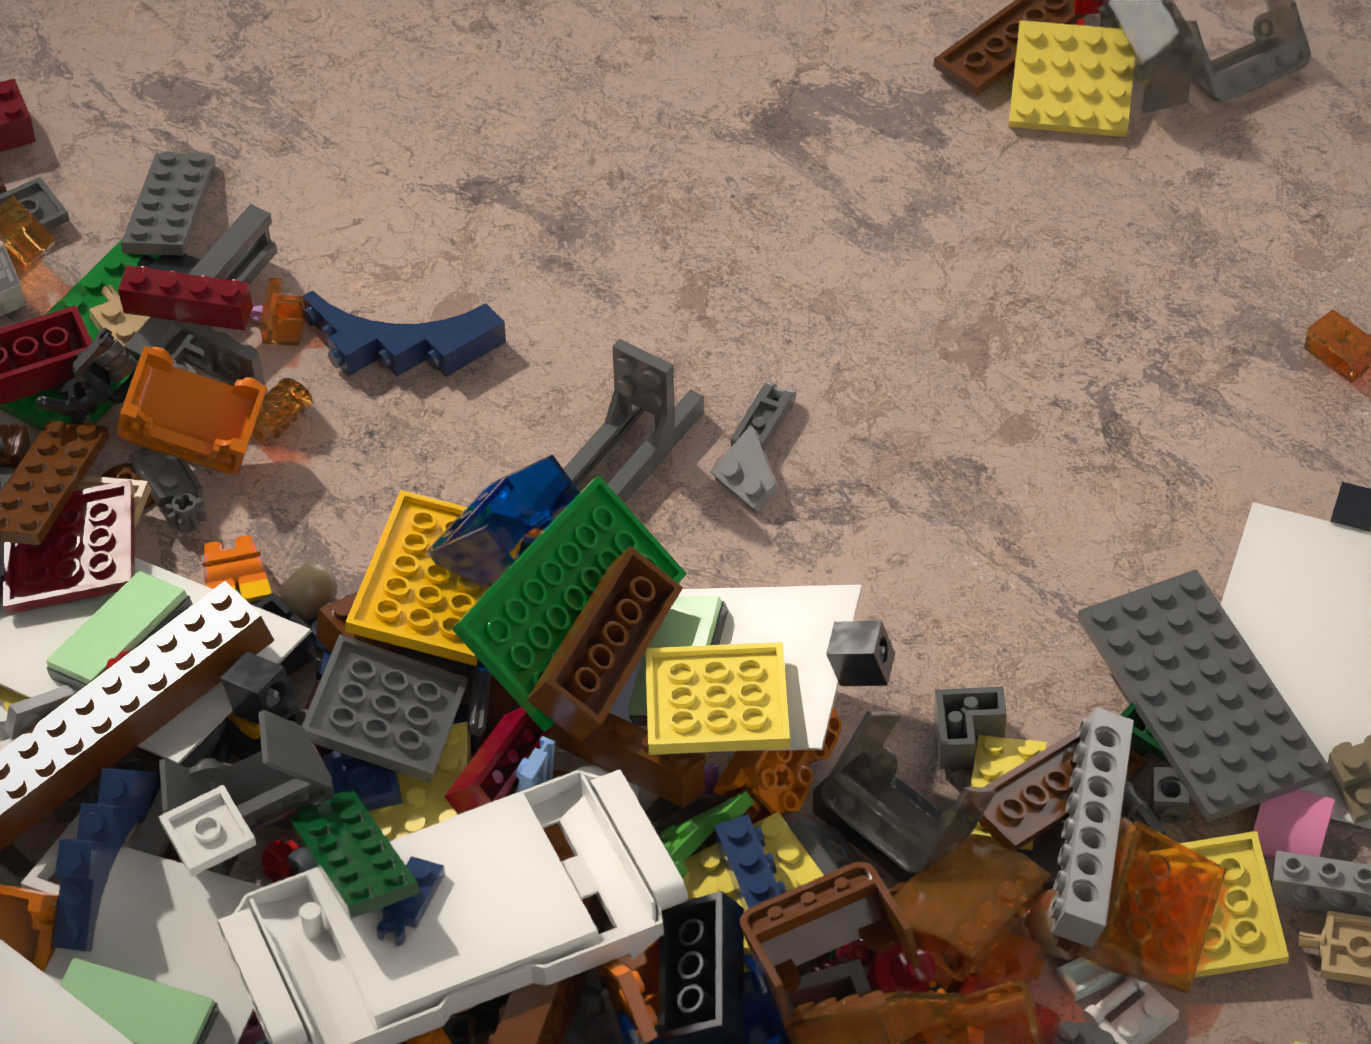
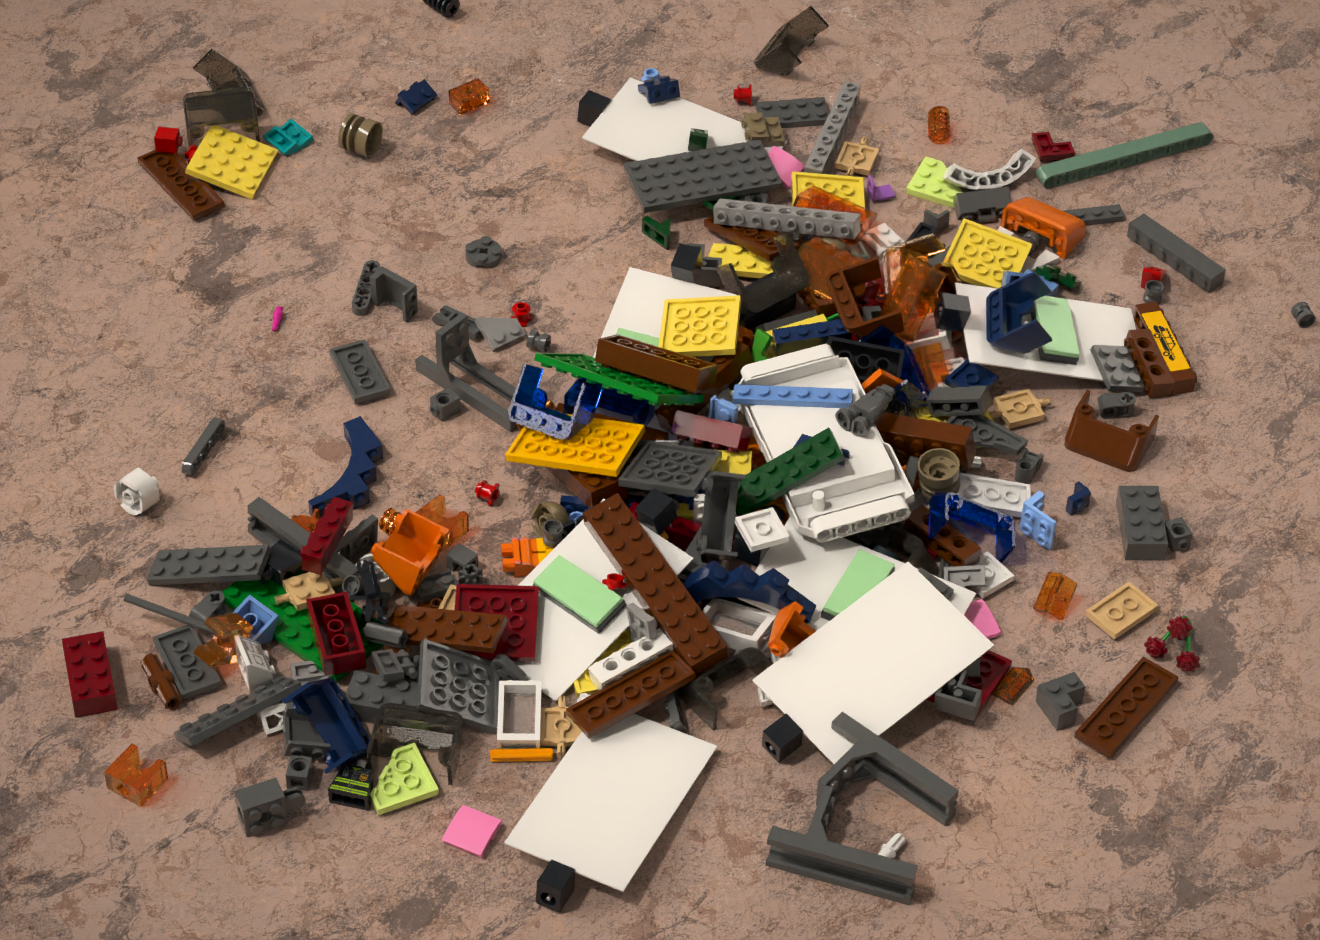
camera: 85 degrees left, 5 degrees down
(31, 421) = (385, 635): none -> dark grey axle
(61, 271) = (260, 617): none -> medium blue slope
(67, 198) = (167, 613): none -> dark grey bar
(95, 227) = (209, 606): none -> dark grey piece
(221, 493) = (461, 557): none -> dark grey panel
(253, 583) = (552, 533): none -> dark grey wheel
(286, 446) = (436, 512): none -> clear orange piece
(313, 103) = (137, 491): none -> white brick
(372, 508) = (487, 491): none -> red brick
(429, 160) = (203, 446): none -> dark grey beam
(506, 953) = (865, 410): none -> dark grey piece
(543, 847) = (792, 396): none -> medium blue plate
(563, 426) = (445, 404): none -> dark grey brick
(623, 313) = (360, 371): none -> dark grey plate
(732, 199) = (277, 317): none -> dark pink piece
(735, 525) = (539, 341): none -> dark grey wheel
(787, 335) = (395, 291): none -> dark grey panel
(800, 495) = (521, 312): none -> red brick
(824, 287) = (364, 288): none -> dark grey beam
(946, 412) = (476, 250): none -> dark grey plate
(1055, 660) = (657, 232): none -> dark green slope
(1165, 140) = (289, 137): none -> teal slope
(1175, 214) = (360, 135): none -> dark tan wheel
(1269, 993) = (879, 192): none -> medium lavender bracket
(1302, 667) = (697, 139): none -> dark green slope
(1319, 279) = (417, 96): none -> dark blue bracket

